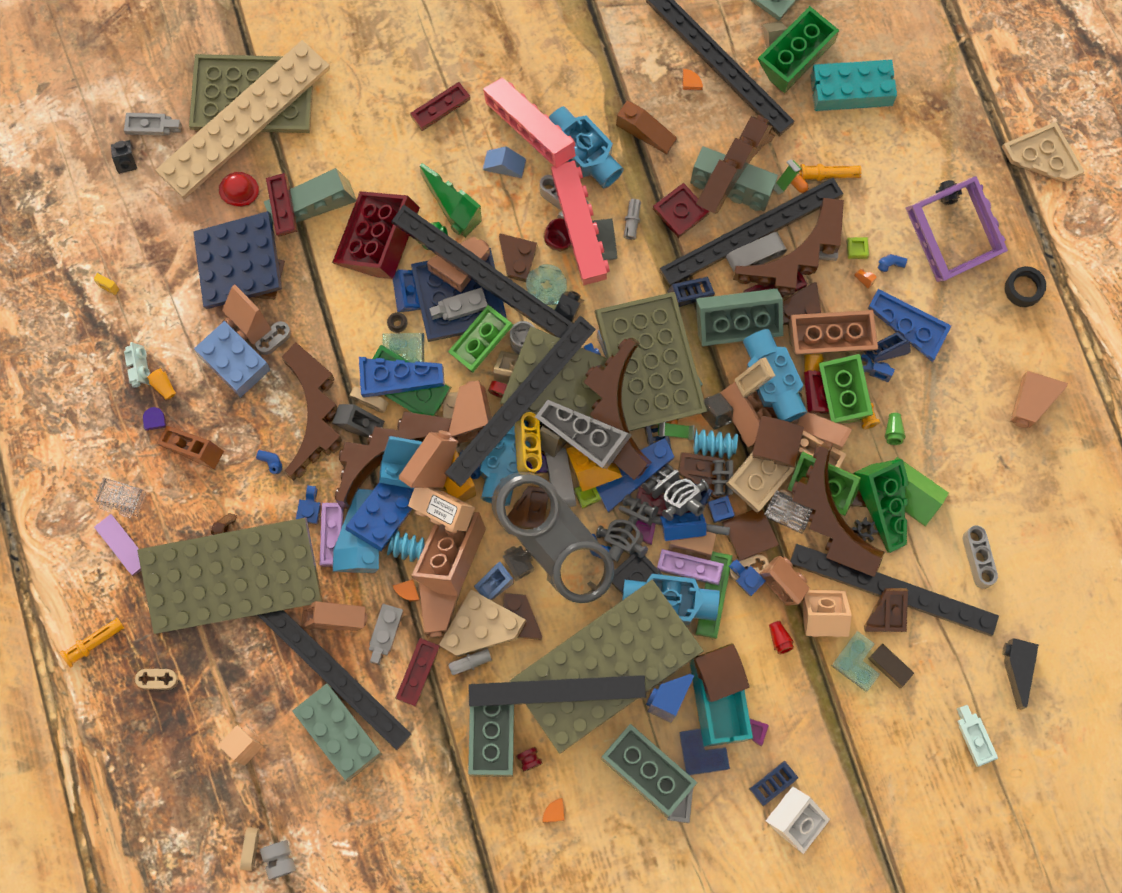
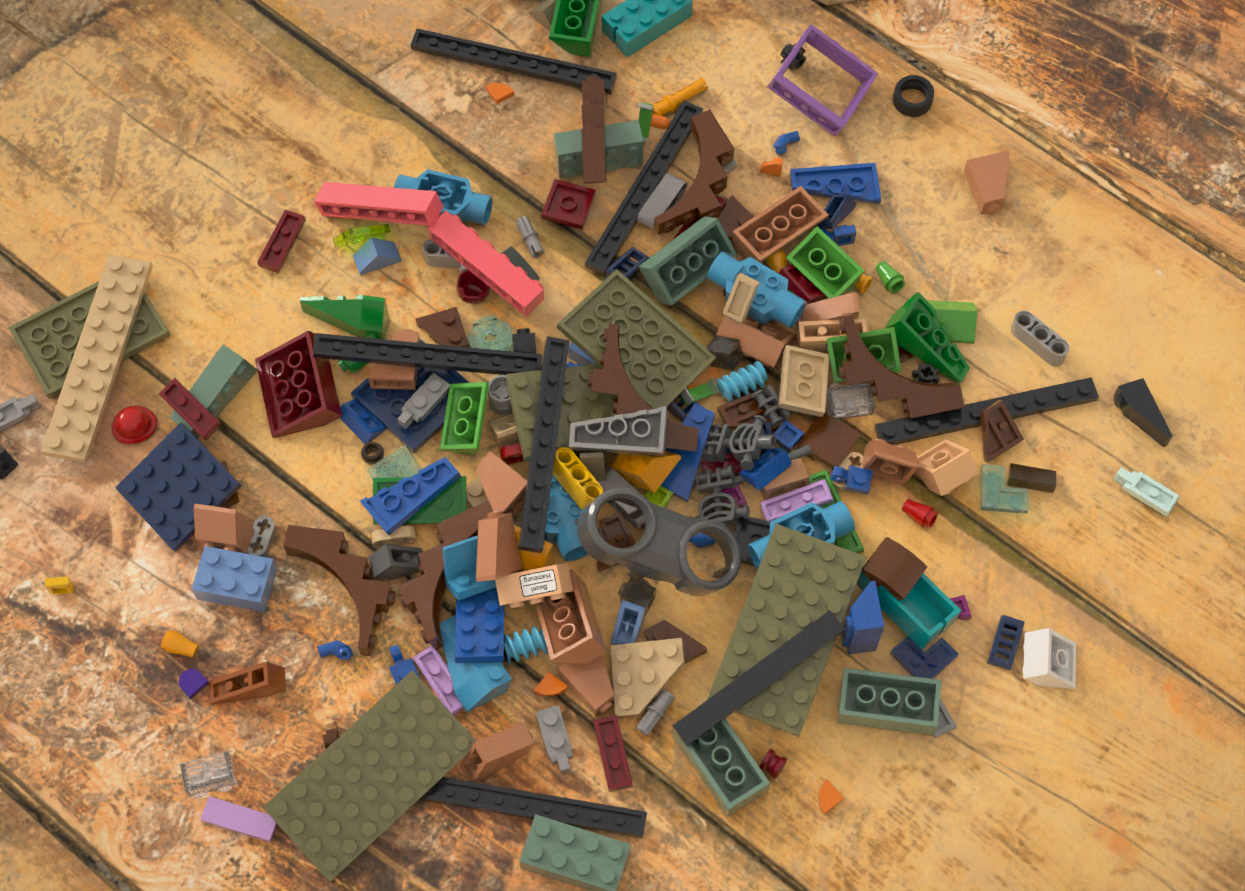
camera: 30 degrees left, 10 degrees down
(136, 356) = (135, 635): light aqua hinge -> none
(498, 138) = (361, 234): none -> clear neon green wing
(645, 127) = (485, 153): dark orange slope -> none
(778, 441) = (799, 341): reddish brown slope -> none
(857, 248) = (747, 147): lime tile -> none

